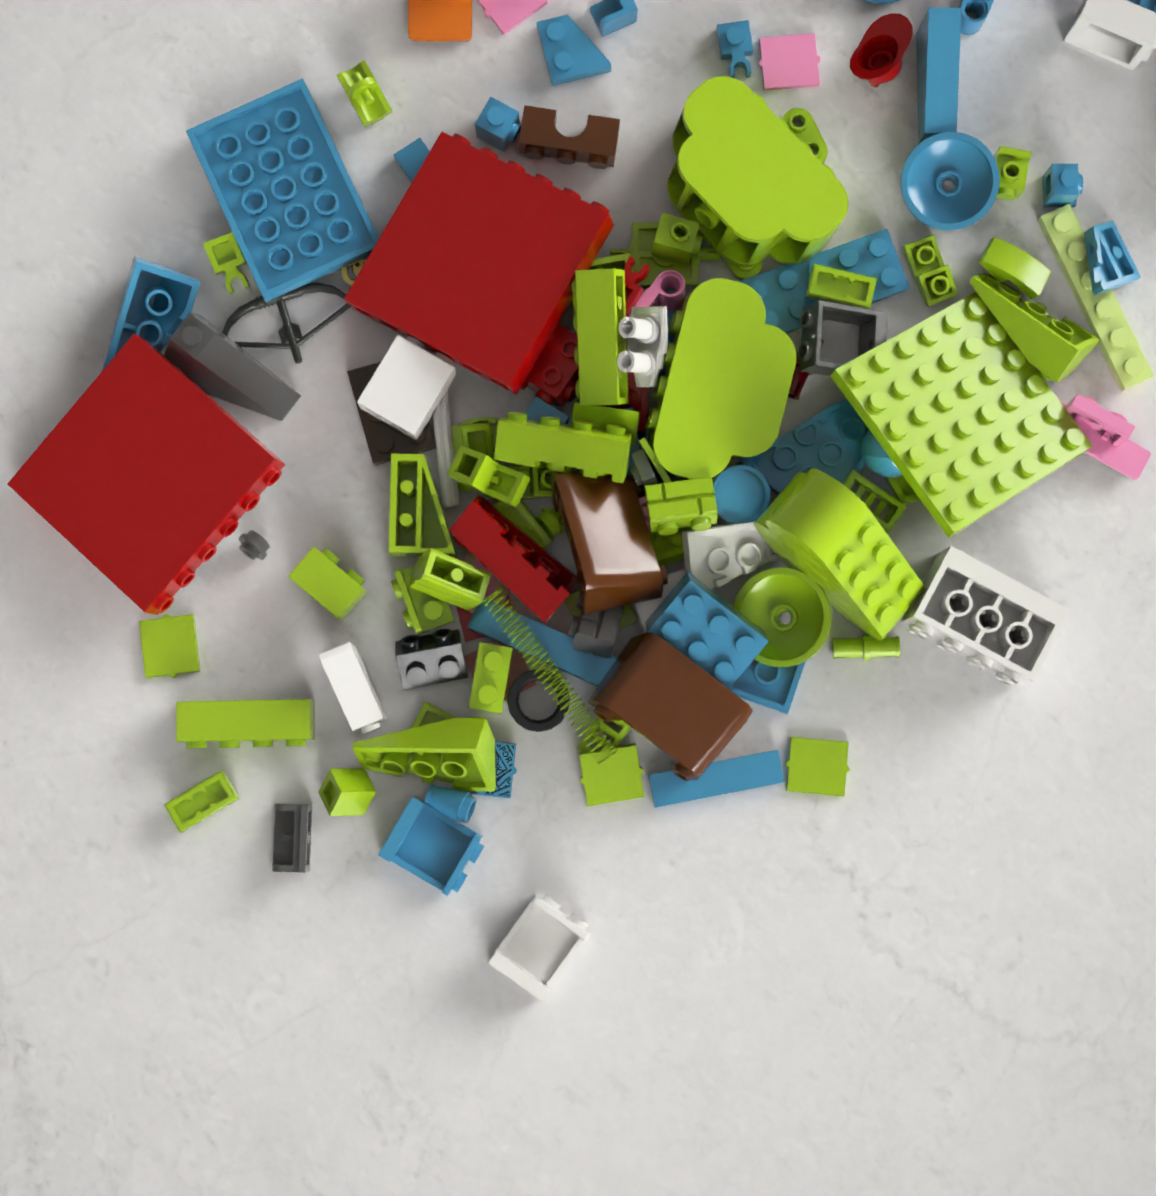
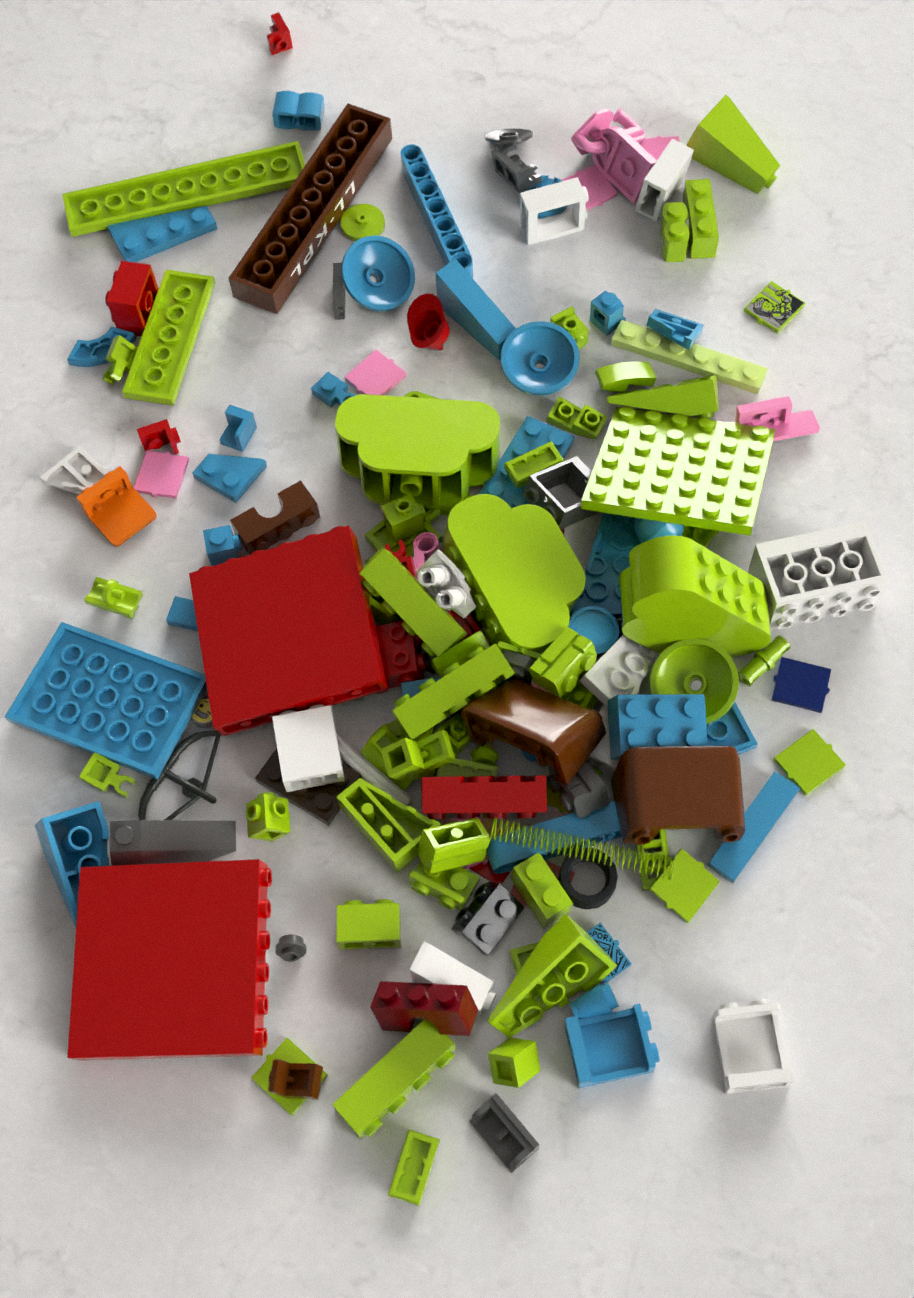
camera: 35 degrees left, 20 degrees down
(166, 656) = (295, 1080): none -> reddish brown bracket
(321, 704) = (445, 1005): none -> dark red arch
(326, 417) = (268, 817): none -> lime brick
(878, 695) = (801, 684): none -> clear blue piece

